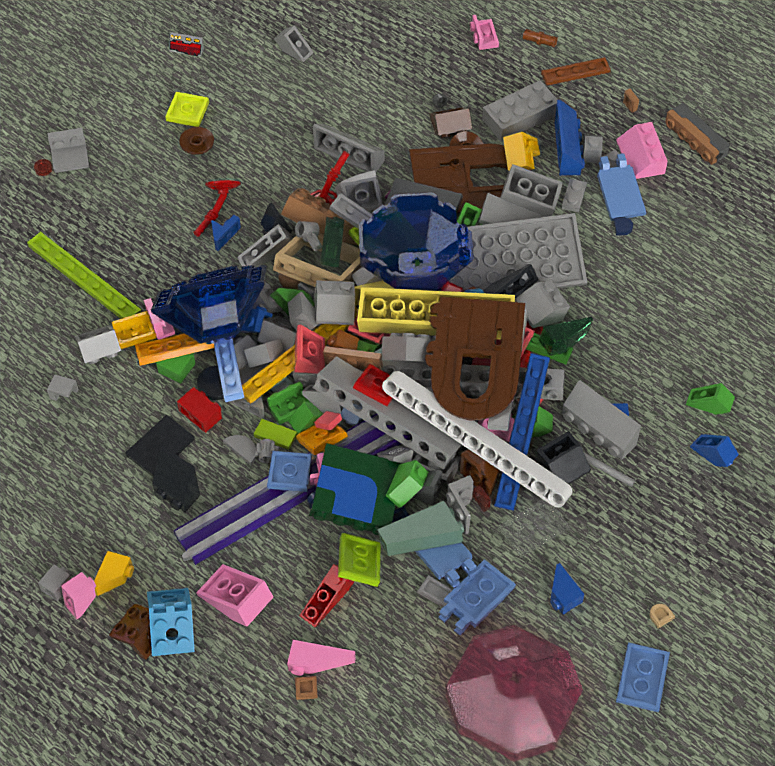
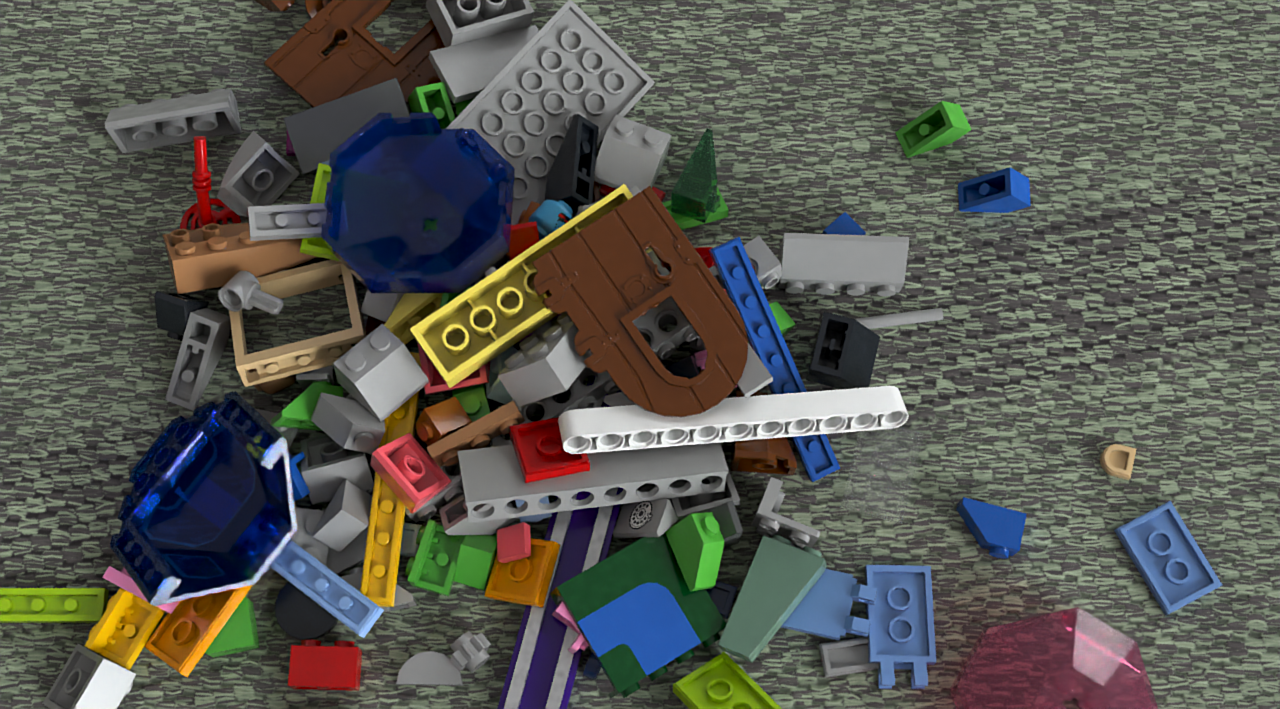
camera: 45 degrees left, 15 degrees up
(223, 188) = (55, 315): red dish -> none
(224, 233) = (116, 380): blue slope -> none
(280, 435) = (454, 615): lime tile -> none
(289, 471) = (530, 657): medium blue tile -> none
(332, 241) = (292, 284): clear green slope -> none
(481, 498) = (794, 486): clear red tile -> none

